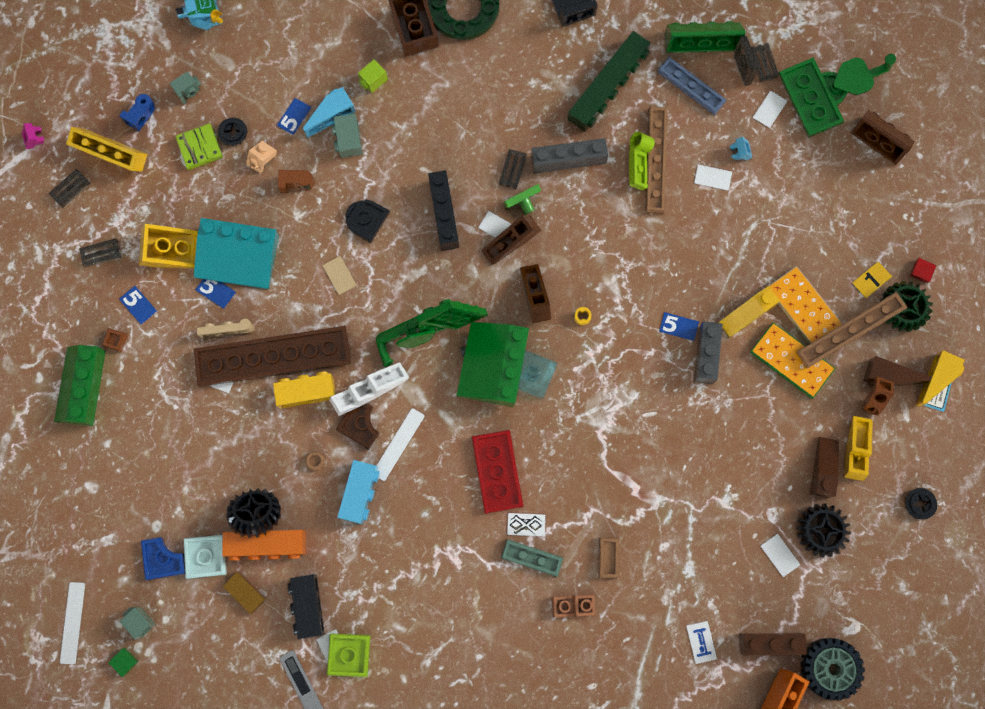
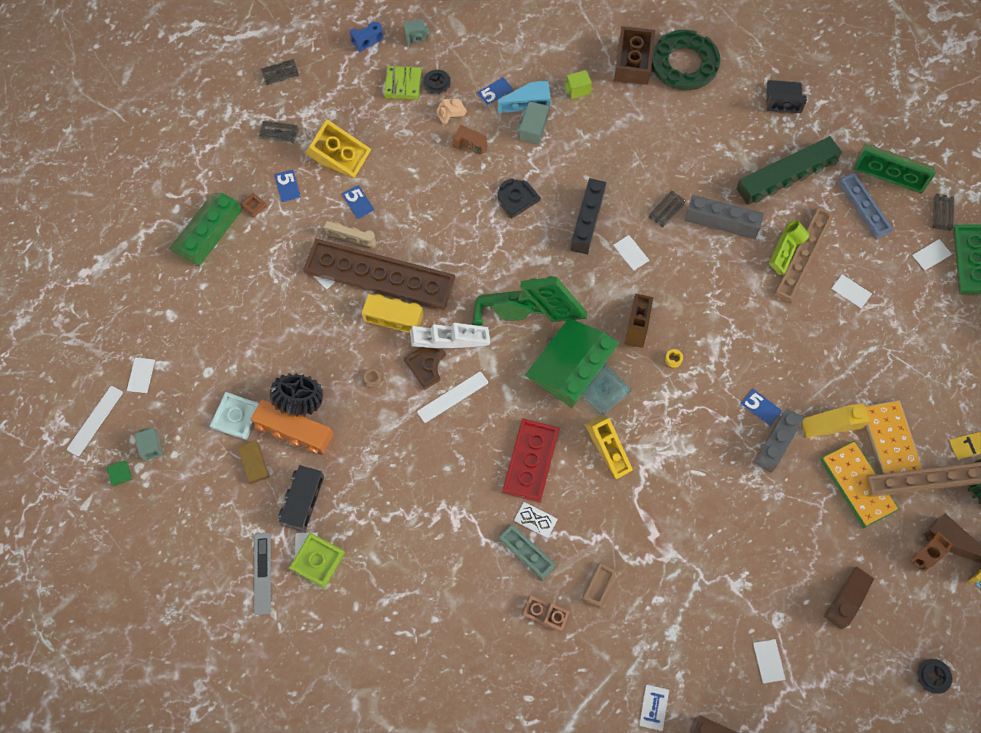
camera: 25 degrees right, 10 degrees down
(29, 137) = (270, 18): dark pink tile -> none
(93, 559) = (141, 375): none -> white sticker
(106, 149) = (326, 52): yellow brick -> none
(160, 561) = (195, 401): blue tile -> none
(235, 253) = (390, 176): teal slope -> none
(339, 275) = (470, 233): tan sticker -> none
(358, 492) = (396, 420): medium azure brick -> none
(511, 239) = (639, 264): reddish brown slope -> none
(523, 199) = (665, 236): bright green tile -> none
(561, 427) = (609, 445): none -> yellow slope
(743, 147) = (891, 276): medium azure tile -> none
(745, 61) = (925, 201): clear smoke tile -> none
(823, 538) = (831, 640): black gear -> none
(858, 449) = (891, 594): yellow slope -> none

